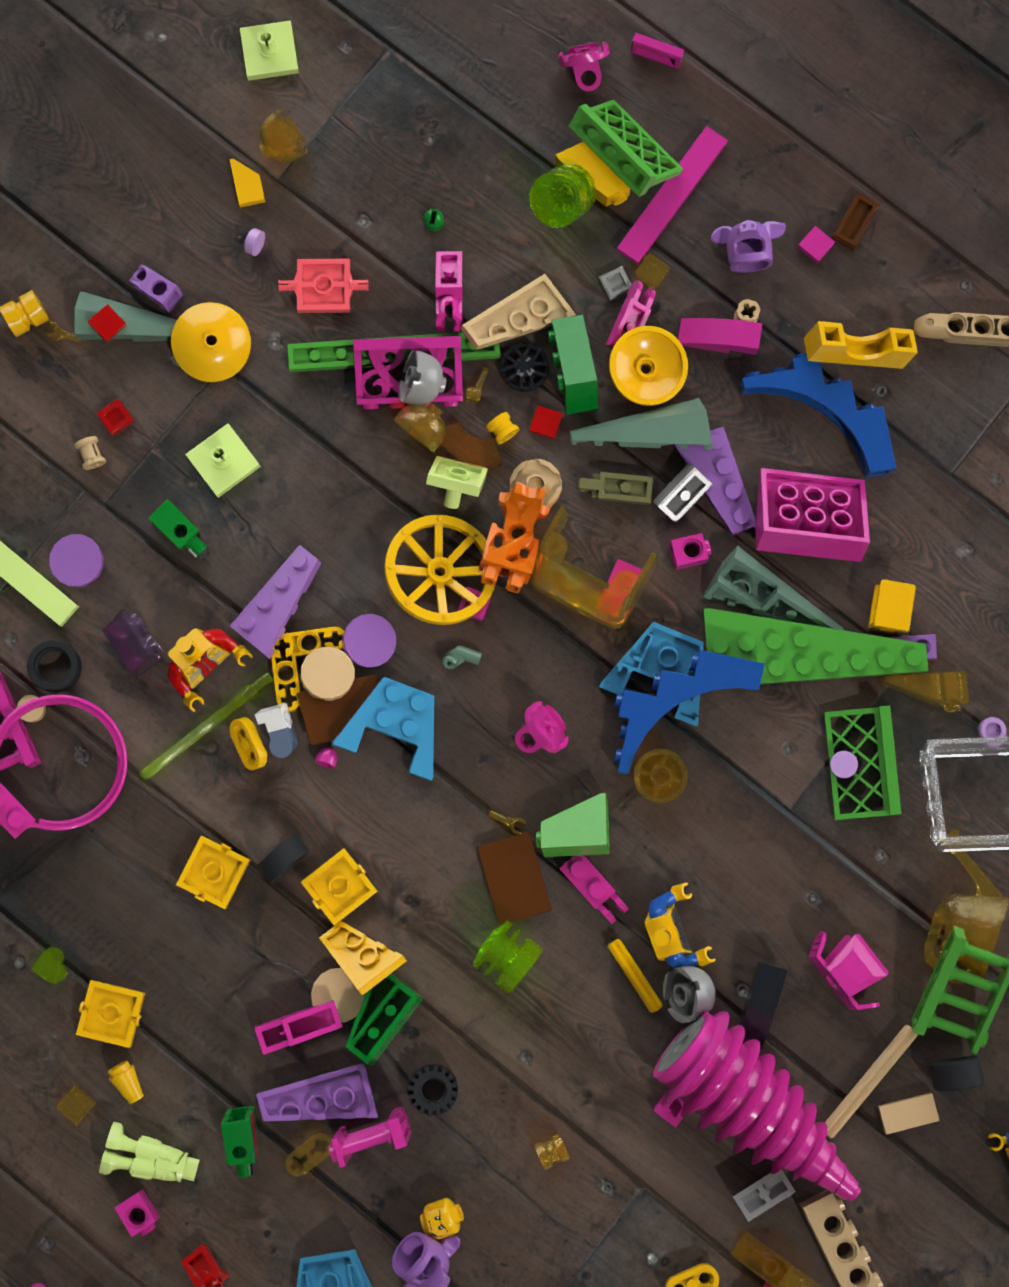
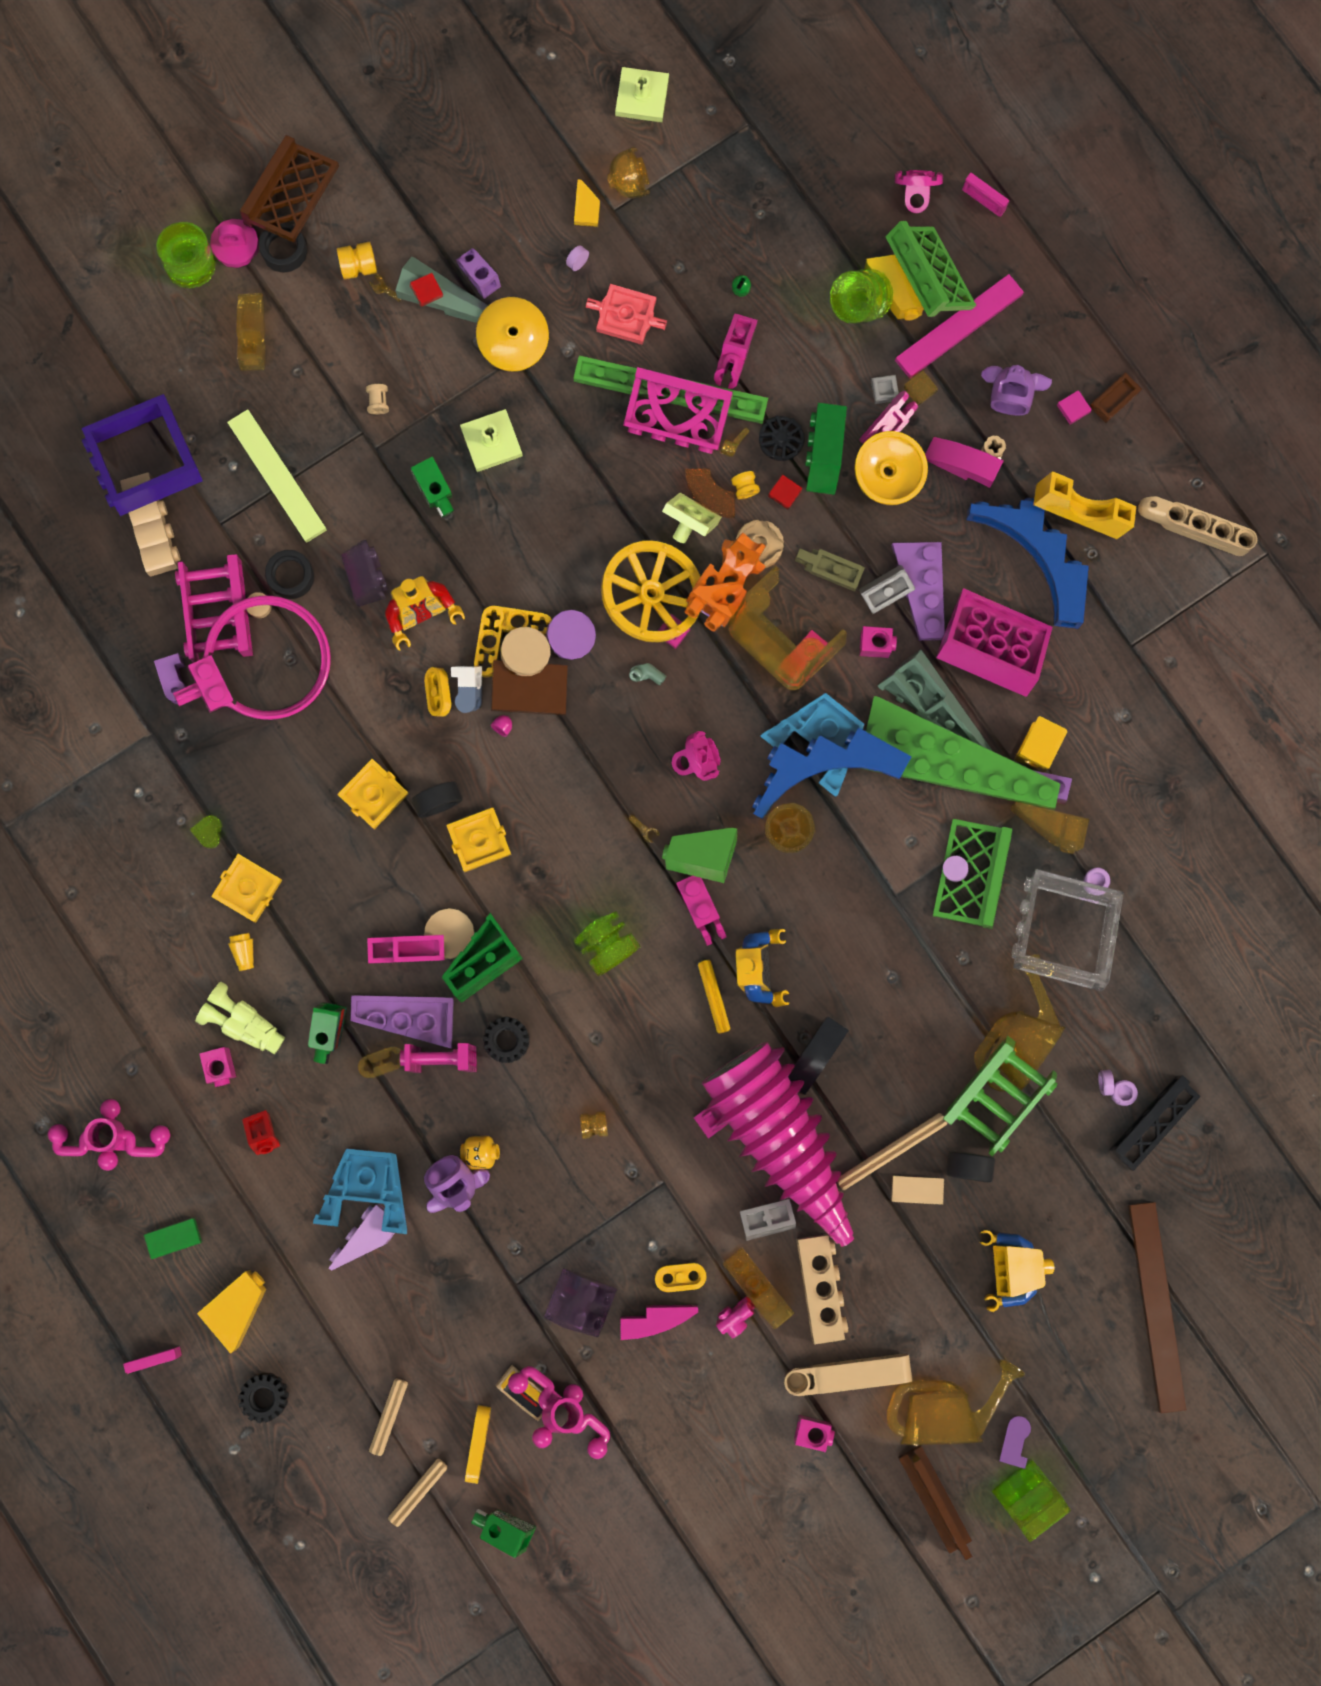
camera: 15 degrees right, 0 degrees up
(76, 560) = (336, 489): medium lavender tile -> none
(76, 1105) = (193, 958): clear yellow tile -> none
(115, 417) = (408, 374): red tile -> none
(247, 693) = (452, 648): clear neon green bar -> none
(271, 608) = (489, 584): medium lavender wing -> none
(360, 957) = (478, 904): yellow wing -> none
(398, 713) = (576, 705): dark azure wing -> none
(422, 379) = (687, 420): light grey cylinder -> none
(423, 424) = (676, 460): clear yellow cylinder -> none
(514, 878) = (634, 879): reddish brown tile -> none
(518, 314) = (789, 389): tan wing -> none
(669, 425) = (879, 525): sand green wedge -> none
(688, 992) = (756, 1023): light grey cylinder -> none
(850, 966) = (905, 1045): dark pink piece -> none

